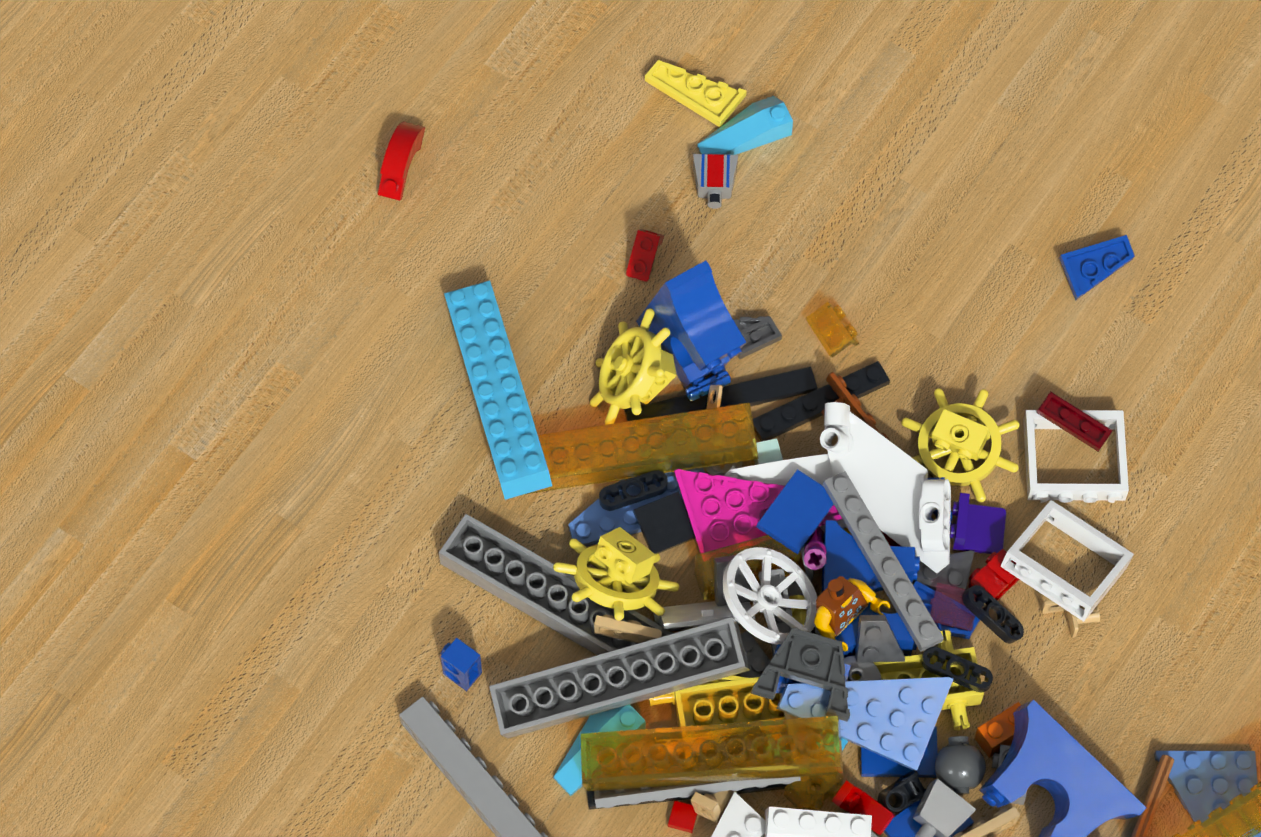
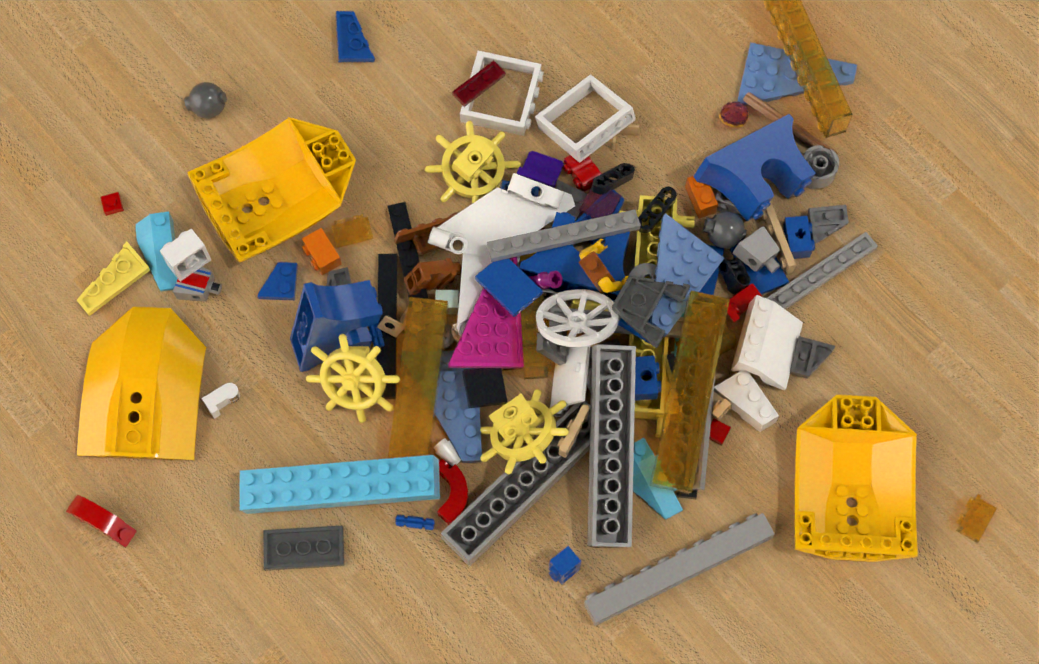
camera: 75 degrees left, 5 degrees up
(421, 379) = (303, 548): none -> dark grey tile
(480, 490) = (415, 522): none -> blue axle
(529, 527) = (458, 496): none -> red arch
(575, 503) = (447, 452): none -> white cone
(578, 242) = (220, 398): none -> white leg
(602, 163) = (161, 360): none -> yellow wedge
(643, 254) = (246, 350): red bracket -> none
(652, 490) = (446, 418): black beam -> none
(729, 689) = (646, 389): none -> blue brick
(736, 148) = (185, 254): none -> white brick
(743, 270) = (280, 283): none -> blue wing
(792, 64) = (112, 203): none -> red plate
(793, 427) = (432, 275): none -> dark orange hips
(794, 301) = (321, 251): none -> orange piece
(877, 641) = (626, 256): flat silver wing -> none
(896, 237) = (292, 165): none -> yellow wedge
(955, 123) = (206, 100): none -> dark grey brick
(1135, 749) = (734, 114): none -> clear pink hair

